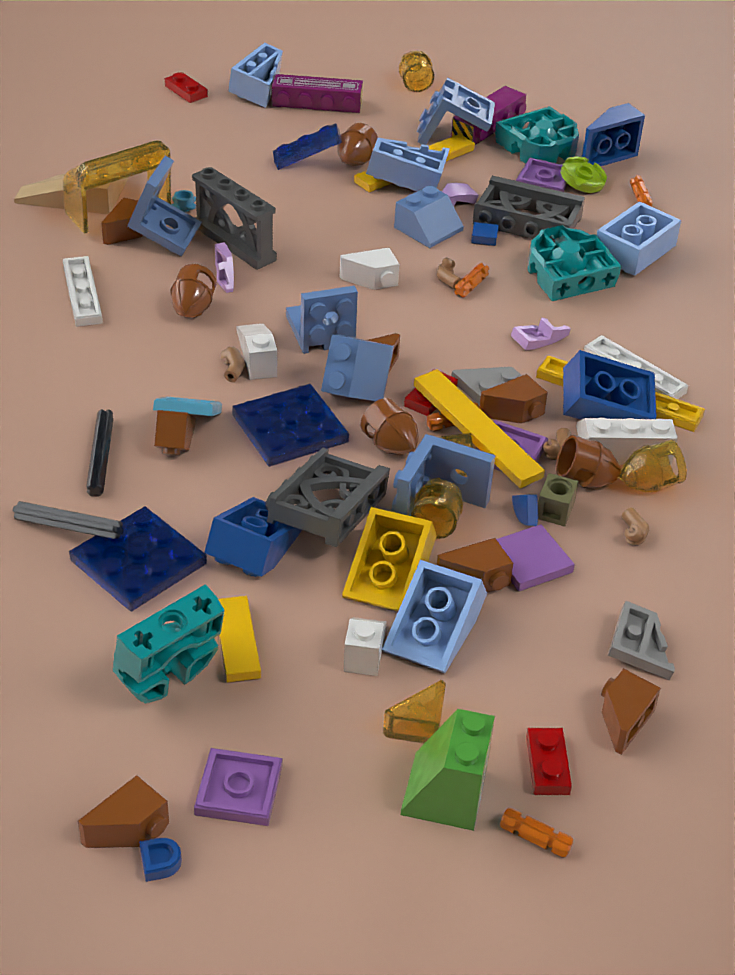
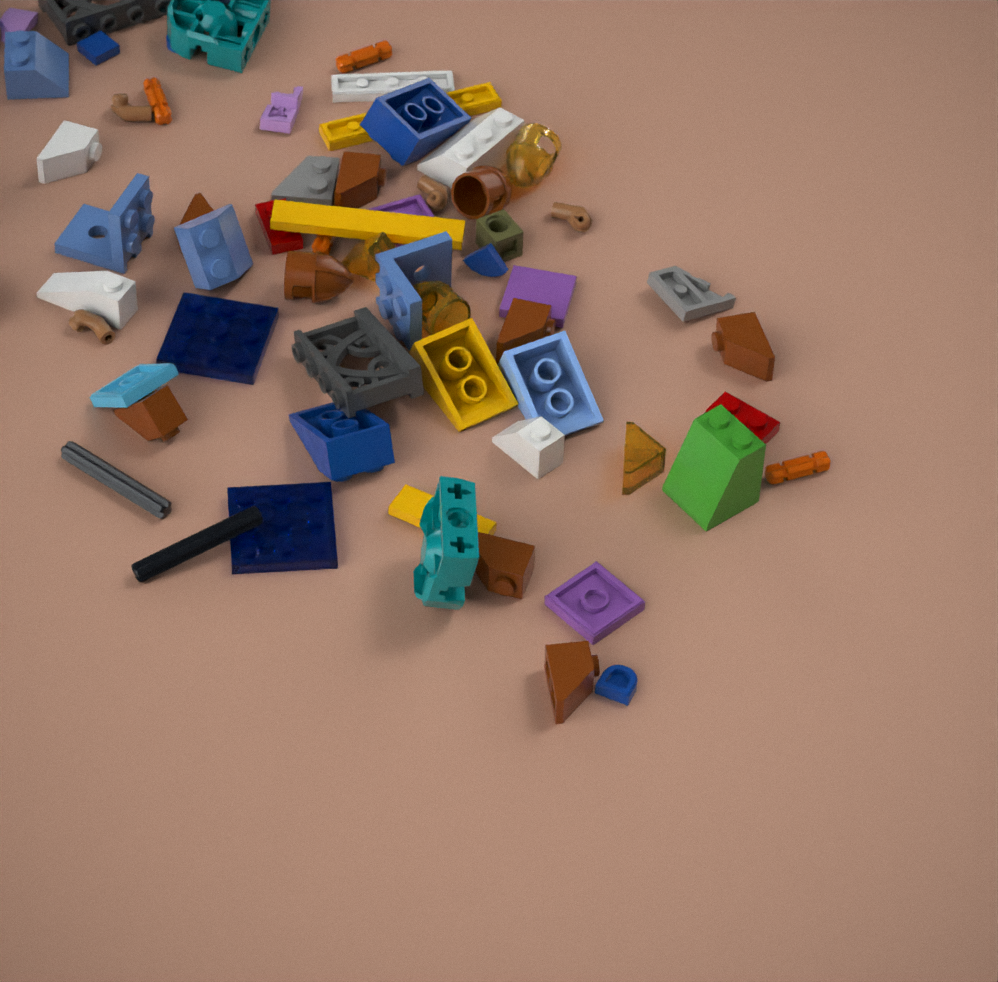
camera: 50 degrees left, 5 degrees up
(215, 700) = (505, 565): none -> dark orange slope
(641, 340) = (363, 56): none -> orange axle

